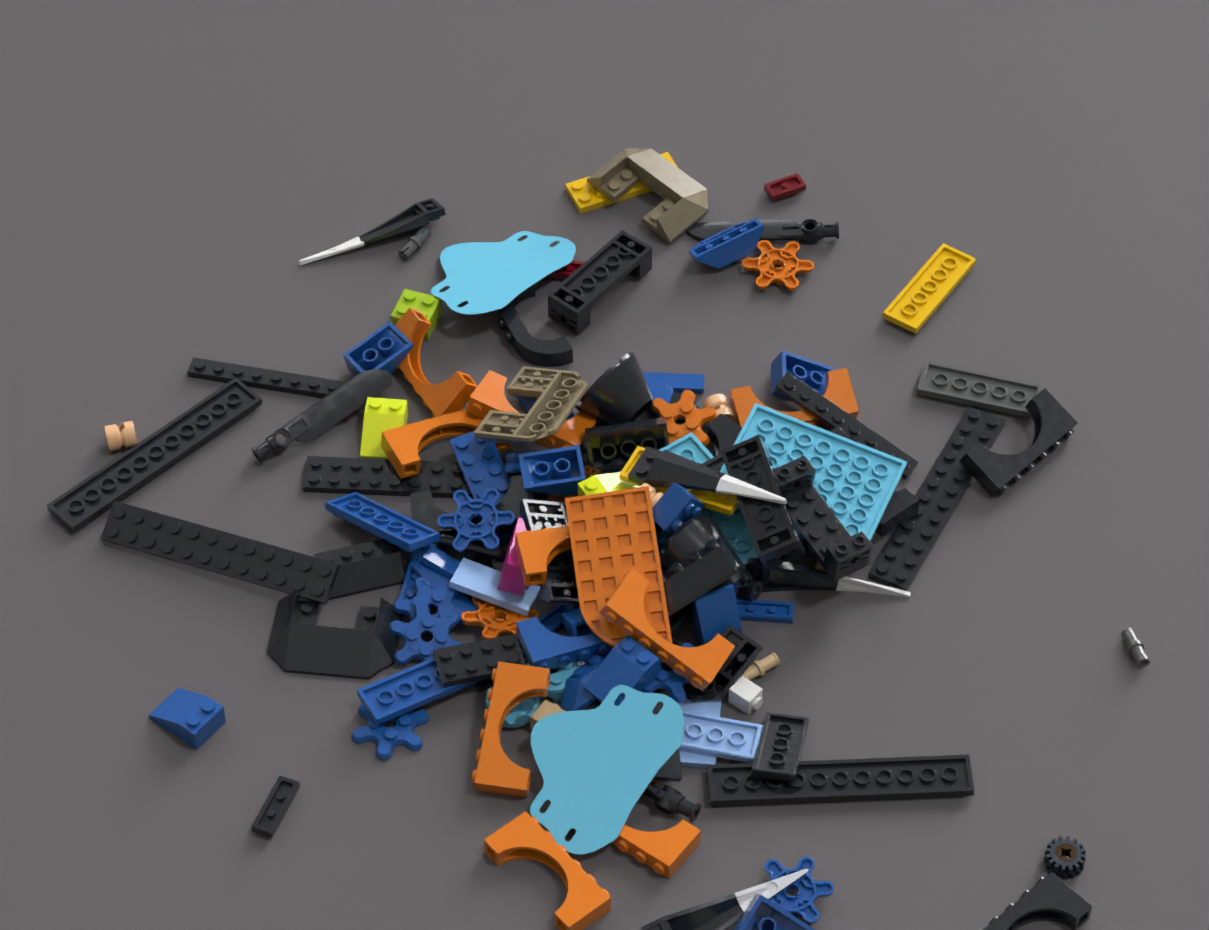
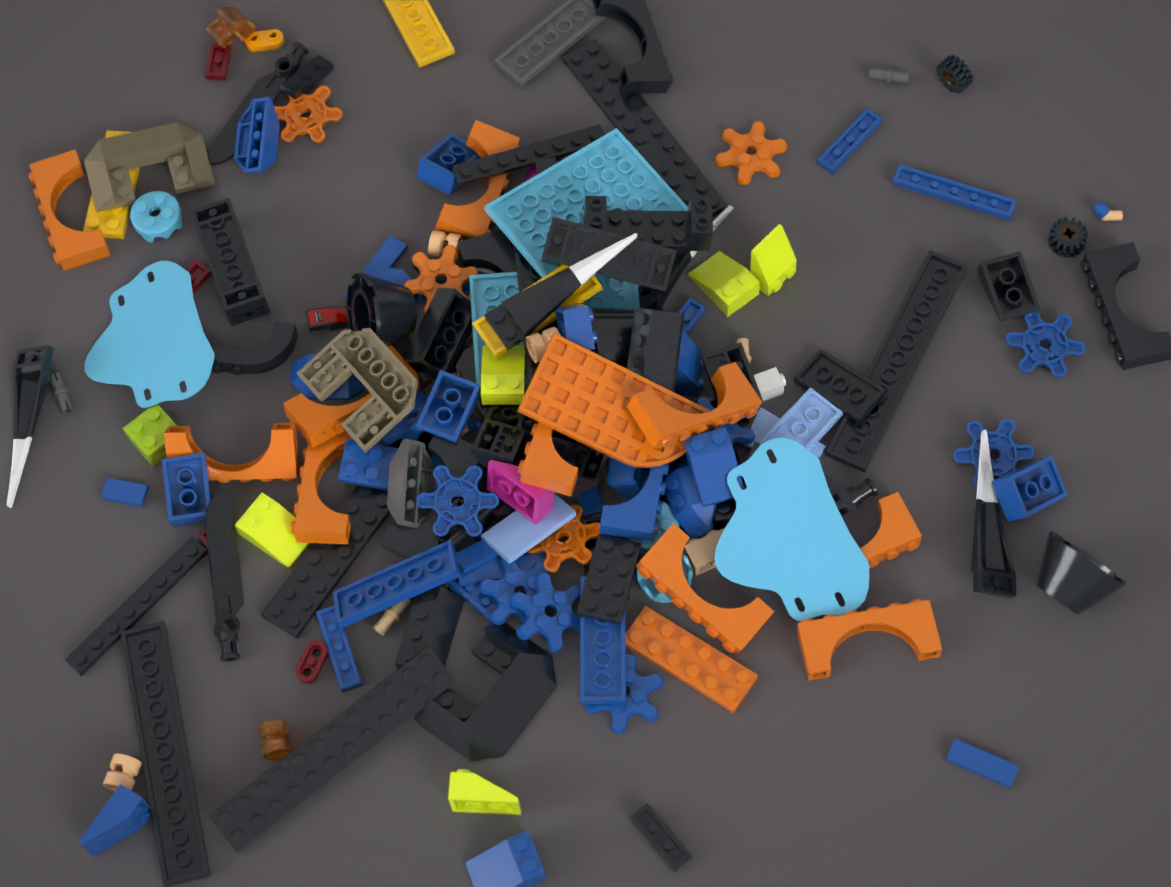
camera: 55 degrees left, 15 degrees up
(78, 447) = (117, 820): none -> blue slope
(208, 512) = (275, 739): none -> clear orange wheel
(233, 660) = (476, 795): none -> neon yellow slope
(286, 507) = (311, 663): none -> dark red plate
(306, 523) = (339, 650): none -> blue tile
(356, 323) = (124, 492): none -> blue tile
(356, 537) = (389, 617): none -> tan pin
(449, 757) = (690, 659): none -> orange plate
(475, 481) = (408, 477): none -> dark grey wedge
(592, 366) = (327, 317): none -> slope
(595, 140) = (71, 246): none -> orange arch
(610, 227) = (161, 225): none -> medium azure plate
(813, 248) = (307, 77): none -> black plate
(824, 176) = (230, 25): none -> clear orange brick
(825, 622) = (725, 282): none -> neon yellow slope
(830, 207) = (264, 42): none -> light orange plate
(863, 636) = (773, 261): none -> neon yellow slope
(930, 873) = (1055, 335): none -> blue plate
(973, 828) = (1008, 286): none -> black slope
(975, 594) = (746, 163): none -> orange plate
(1043, 649) = (849, 141): none -> blue tile
(1047, 750) = (954, 192): none -> blue plate
(1114, 879) = (1105, 212): none -> arm
(1170, 691) = (954, 74): none -> black wheel

